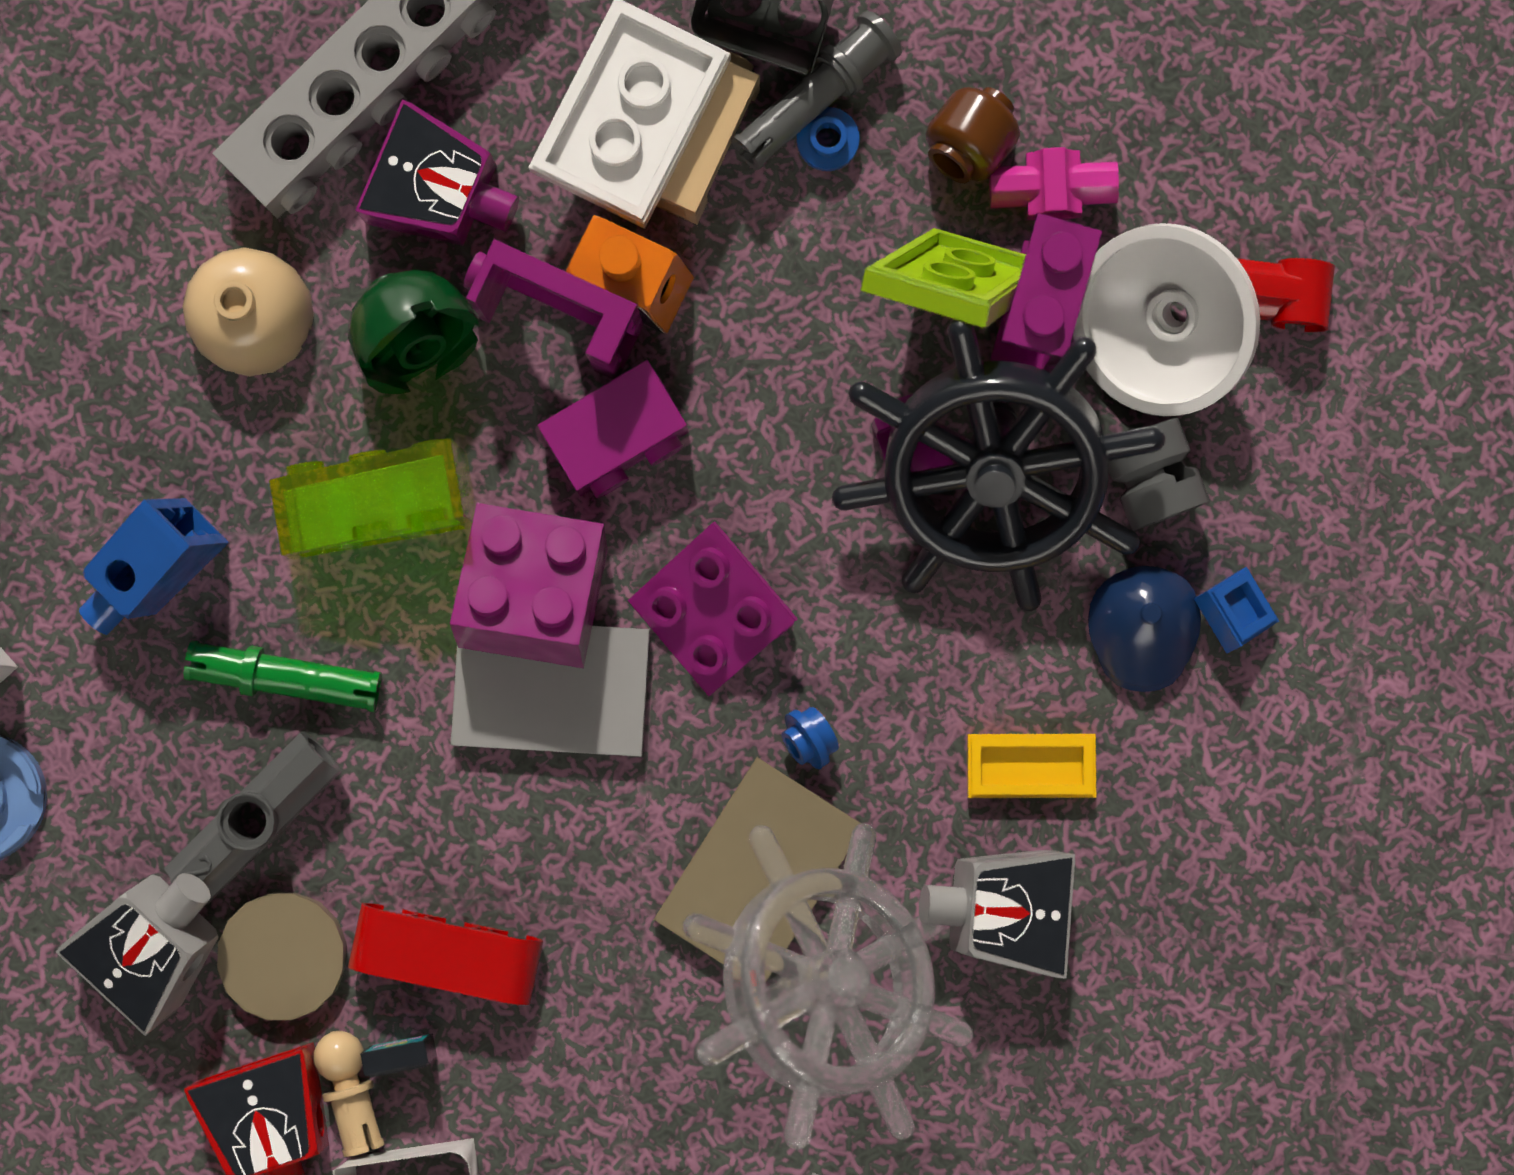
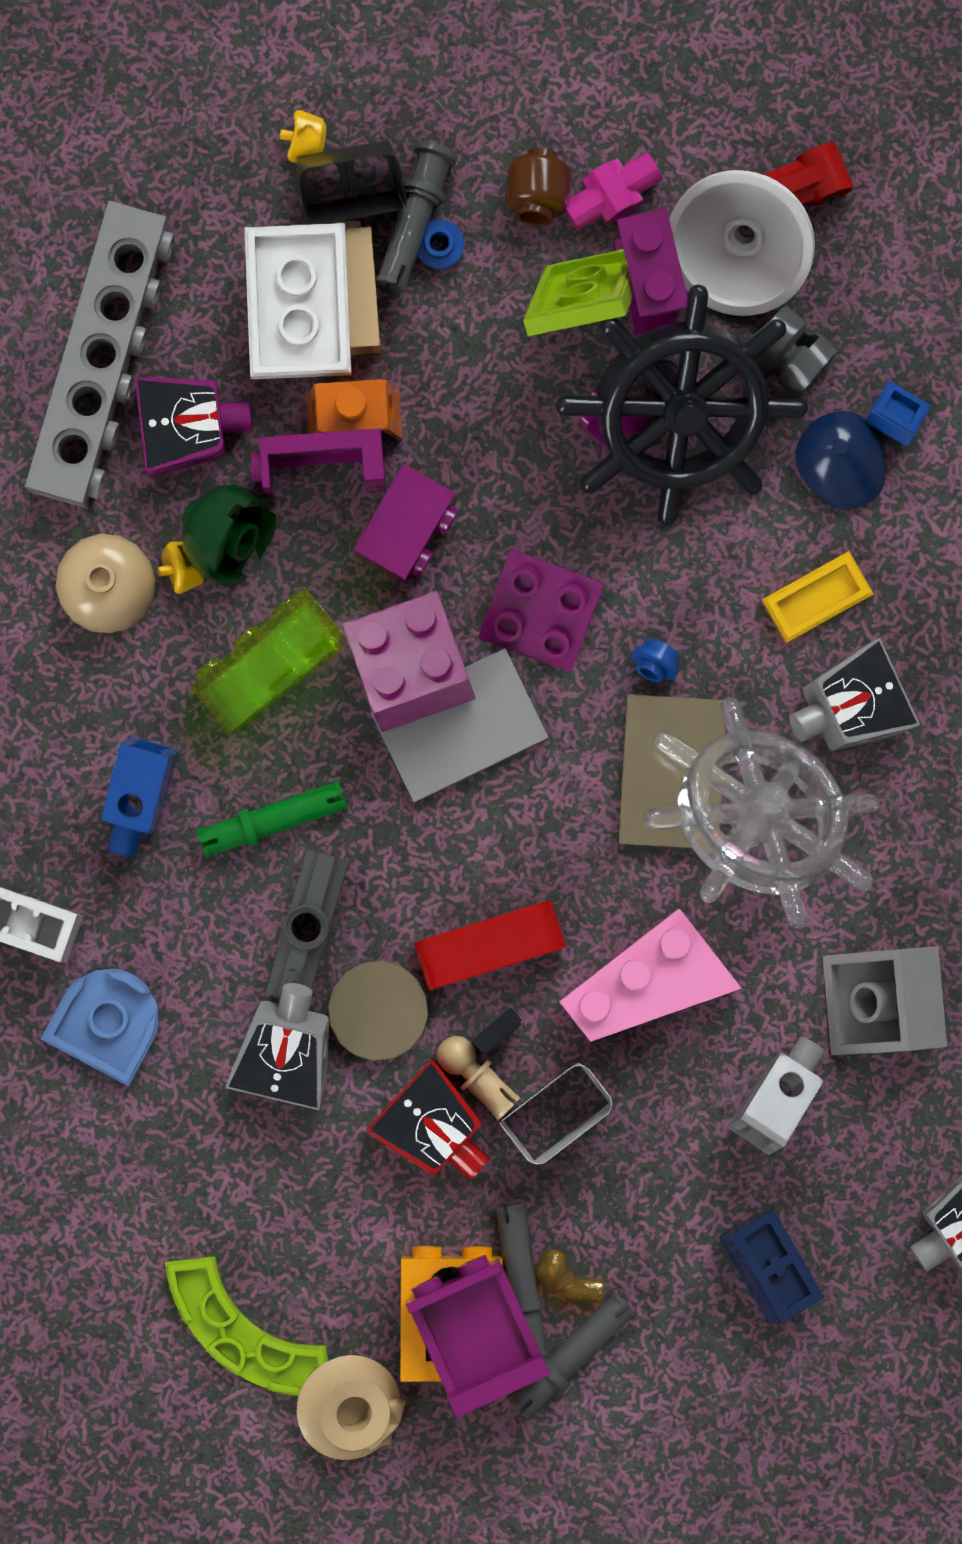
camera: 35 degrees left, 0 degrees up
(337, 350) = (179, 568): none -> yellow piece
(597, 1096) = (649, 979): none -> bright pink wedge

